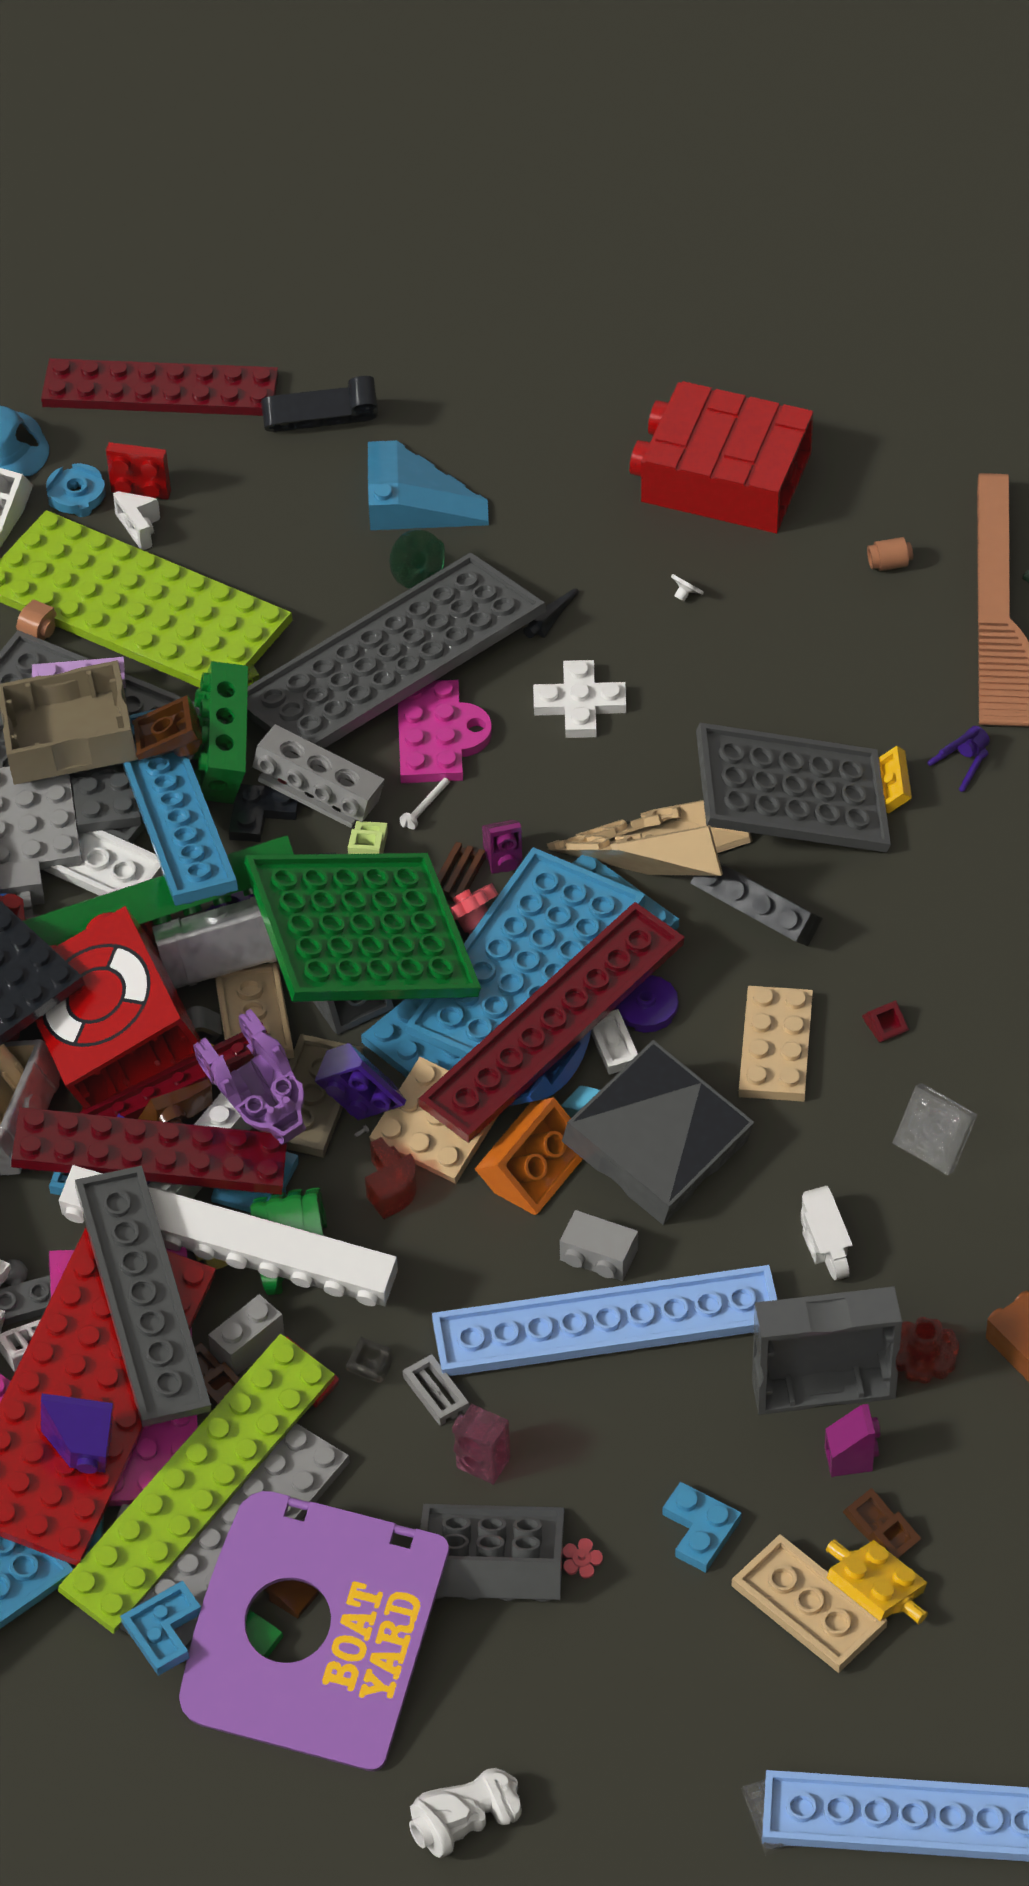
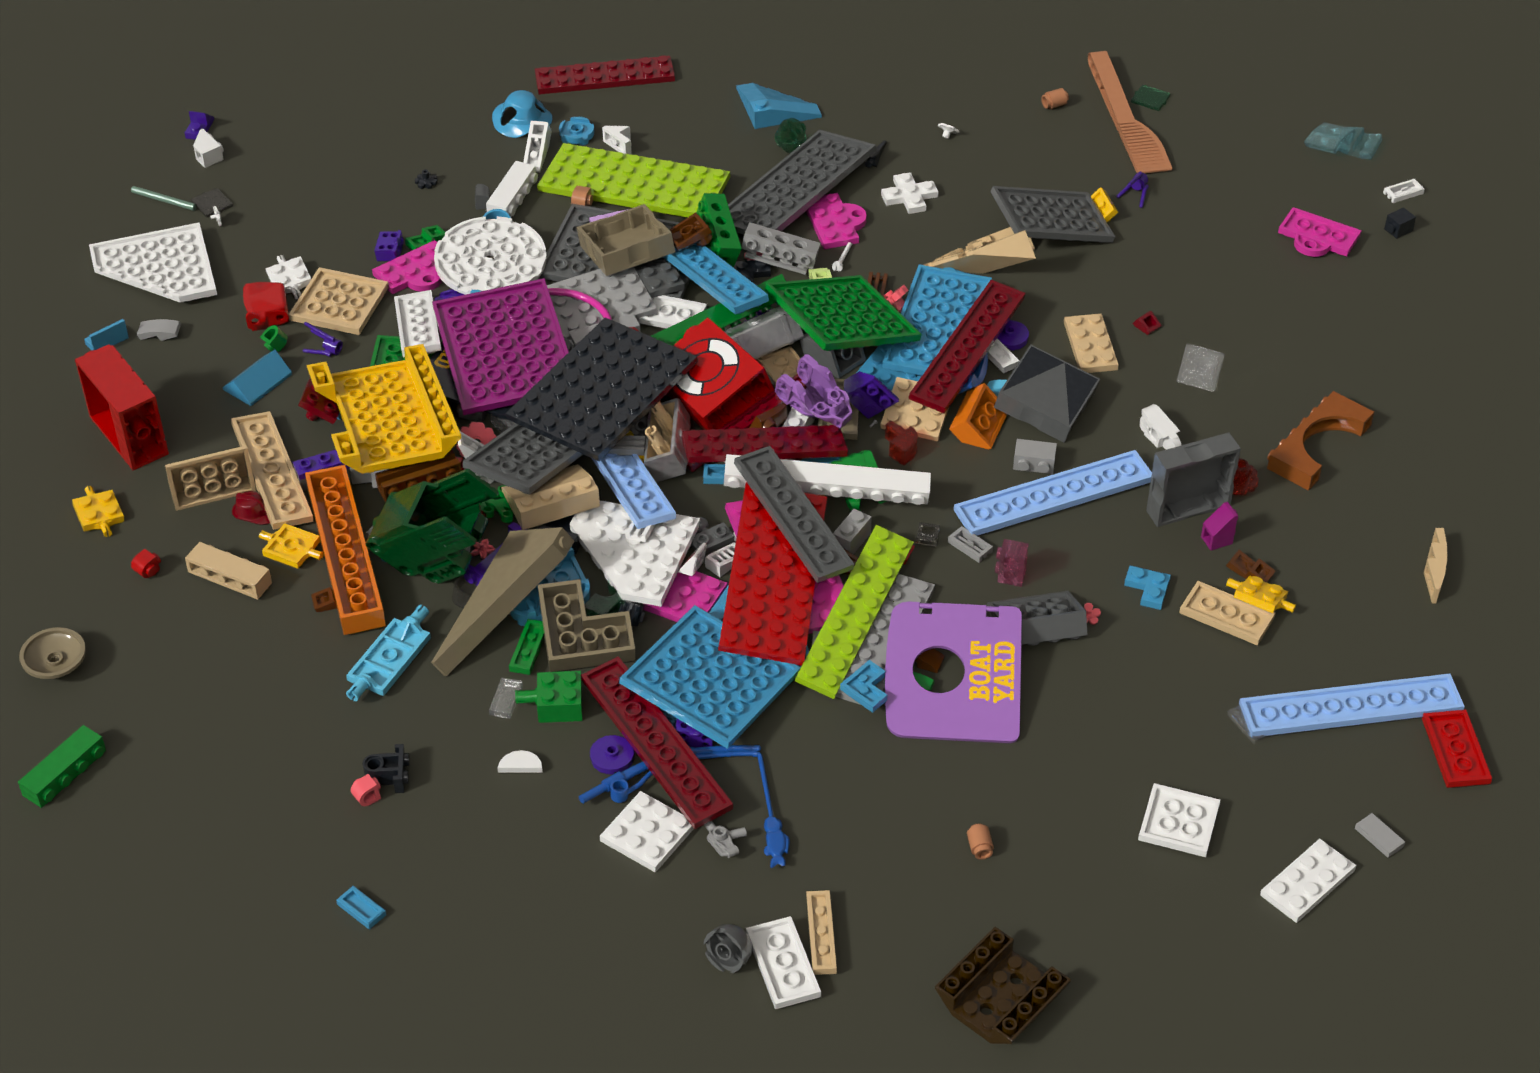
camera: 15 degrees left, 5 degrees down
(78, 1430) = (785, 586): dark purple slope -> none
(138, 470) = (612, 112): red plate -> none
(322, 407) = (706, 70): black beam -> none
(454, 1811) = (1069, 753): white animal -> none
(503, 845) = (899, 268): magenta slope -> none
(723, 456) = (944, 62): red brick -> none
(761, 904) = (1055, 274): brick -> none

